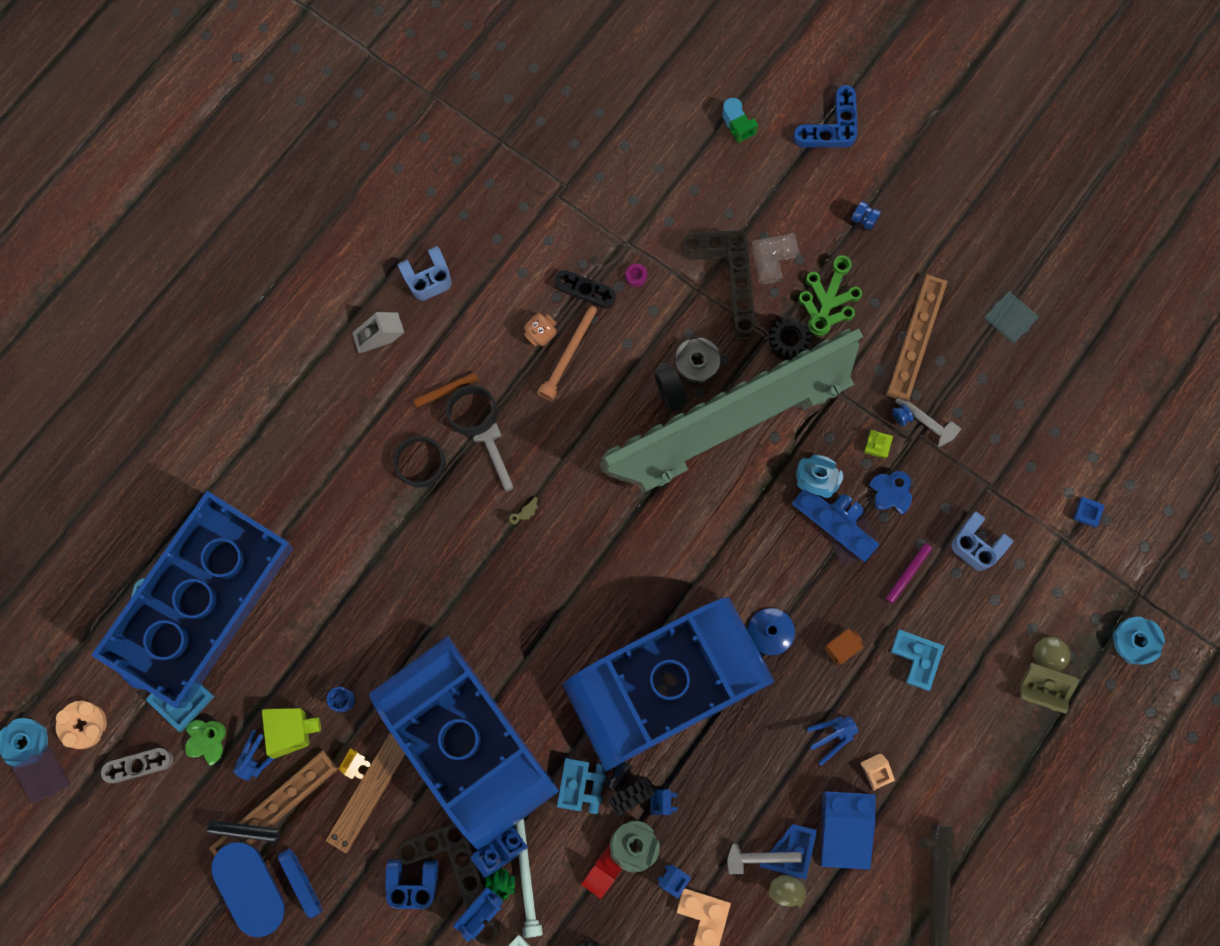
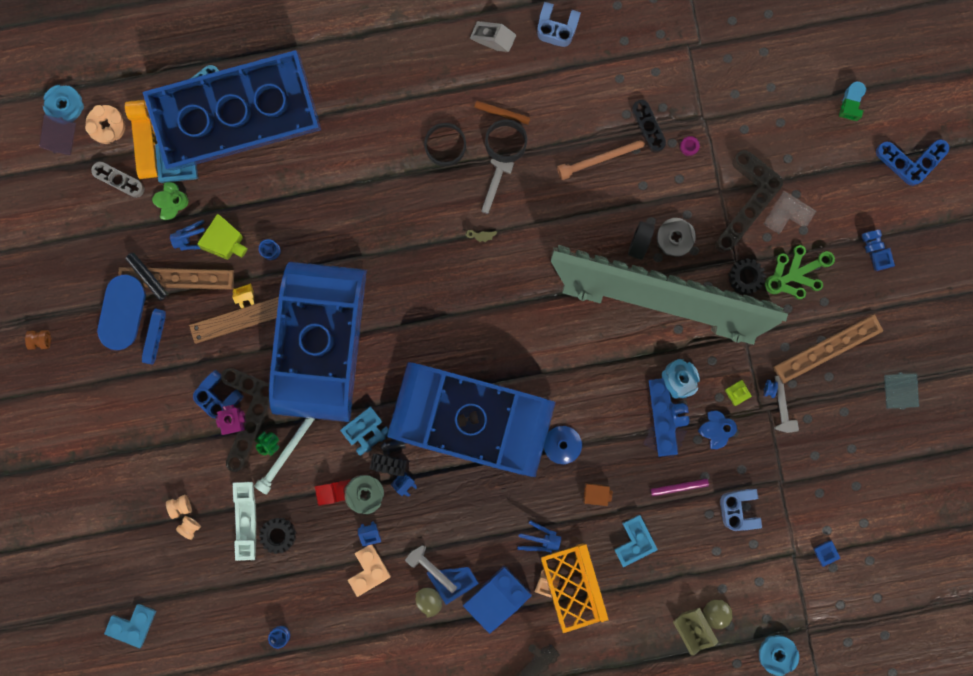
camera: 40 degrees right, 10 degrees up
(129, 703) = (143, 139): none -> light orange beam
(454, 892) = (224, 423): none -> magenta brick
(482, 908) = (245, 449): blue hinge -> none
(499, 852) = (282, 425): blue slope -> none
(540, 329) = (595, 127): nougat head -> none
(888, 224) = (882, 259): none -> blue tile
(915, 732) = (590, 582): none -> light orange fence

